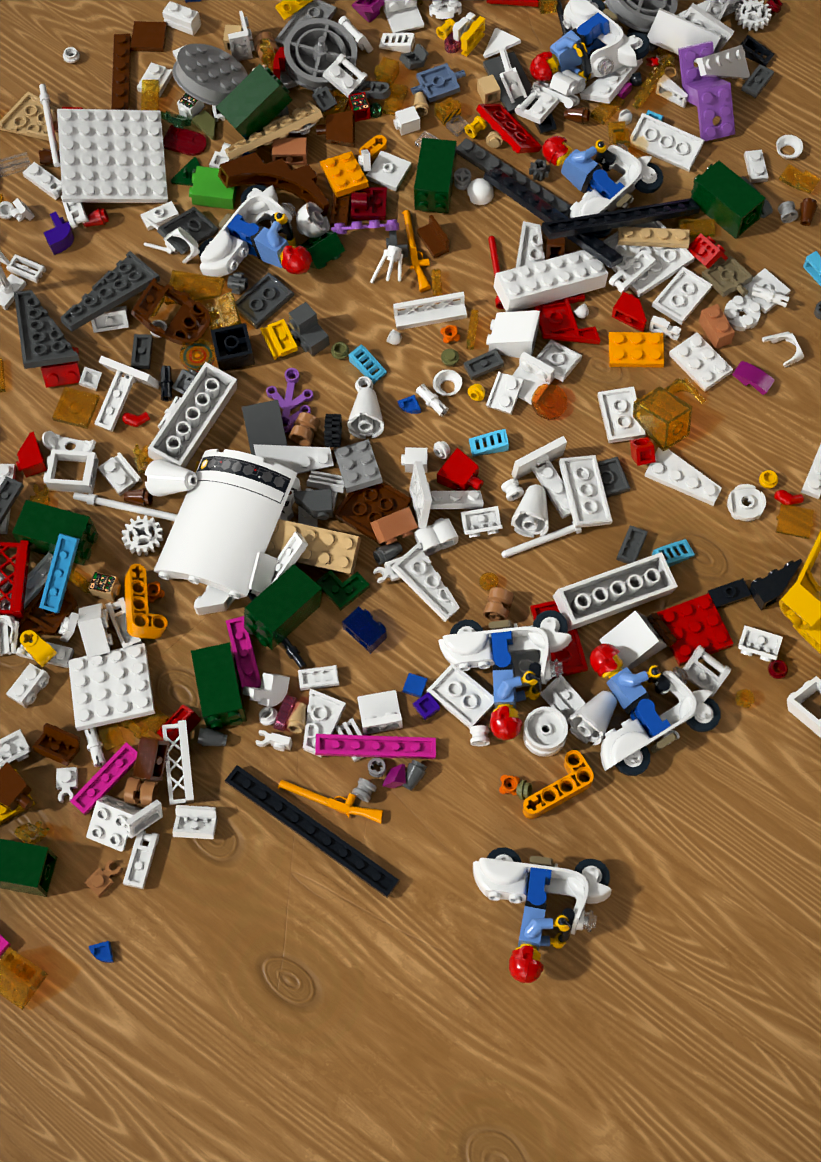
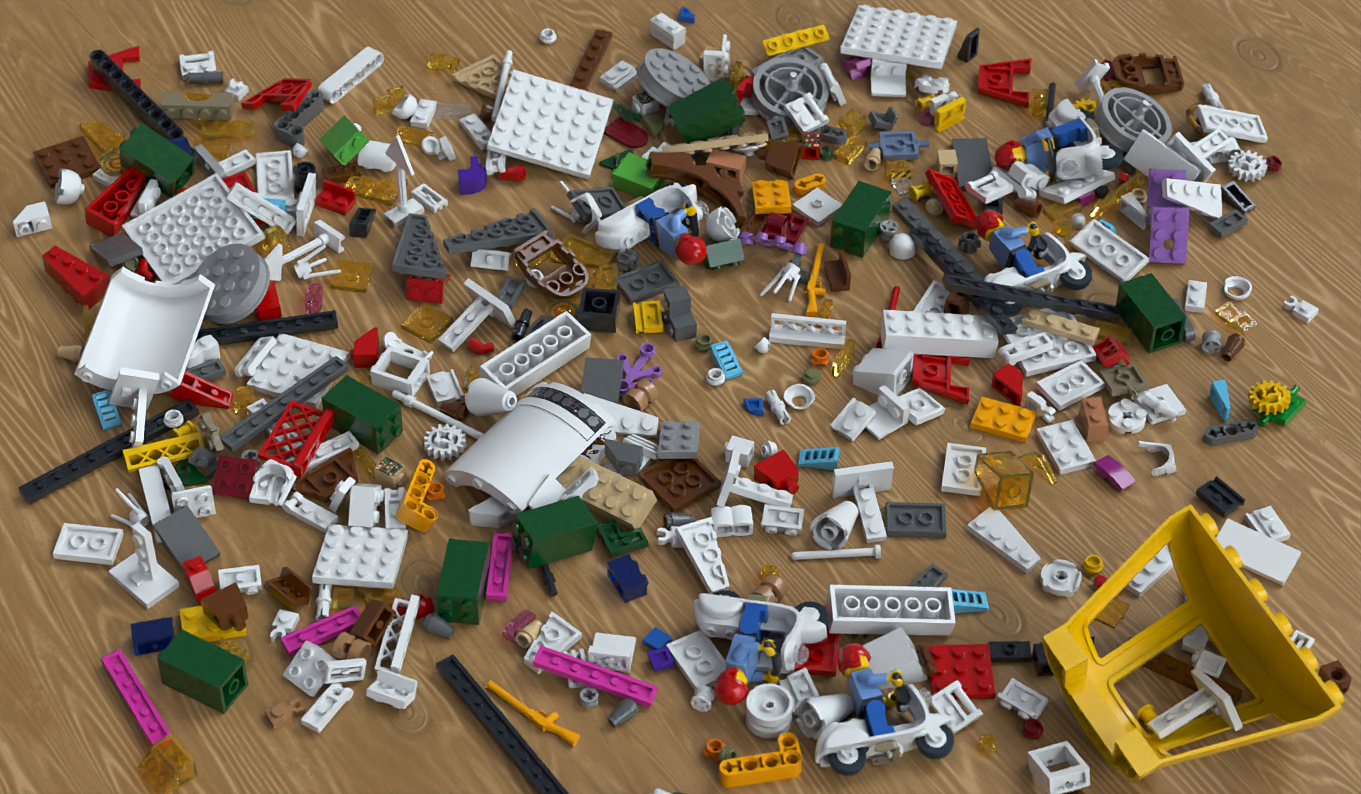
camera: 15 degrees right, 20 degrees down
(28, 685) = (283, 535): white bracket -> none
(38, 649) = (304, 501): yellow piece -> none
(59, 573) = (351, 443): dark azure plate -> none
(90, 378) = (450, 301): white plate -> none
(102, 952) = (257, 773): blue tile -> none
(148, 36) = (629, 39): reddish brown tile -> none
(150, 95) = (610, 84): clear yellow plate -> none
(160, 215) = (576, 184): white plate -> none
(267, 715) = (500, 622): white plate -> none
(272, 690) = (513, 602): white brick -> none
(278, 741) = (502, 647): white plate -> none
(318, 677) = (564, 606): white plate -> none
(333, 430) = (667, 403): black tyre -> none
(364, 160) = (795, 189): white plate -> none
(364, 790) = (568, 711): light grey wheel -> none
(366, 415) = (704, 401): white cone -> none
(393, 525) = (692, 496): nougat brick -> none
(395, 777) = (603, 710): magenta slope -> none
(407, 42) = (877, 103): white slope -> none
(407, 120) = (853, 169): white brick -> none
(476, 392) = (825, 411): yellow plate -> none
(483, 364) = (842, 390): dark grey plate -> none
(499, 43) = (969, 153): white piece -> none
(512, 489) = (824, 500): white wheel -> none
(549, 401) = (895, 439): clear orange tile -> none
(581, 311) = (961, 372): white hinge -> none
(585, 491) = (898, 521): white tile -> none
(642, 451) = (971, 503): red brick -> none

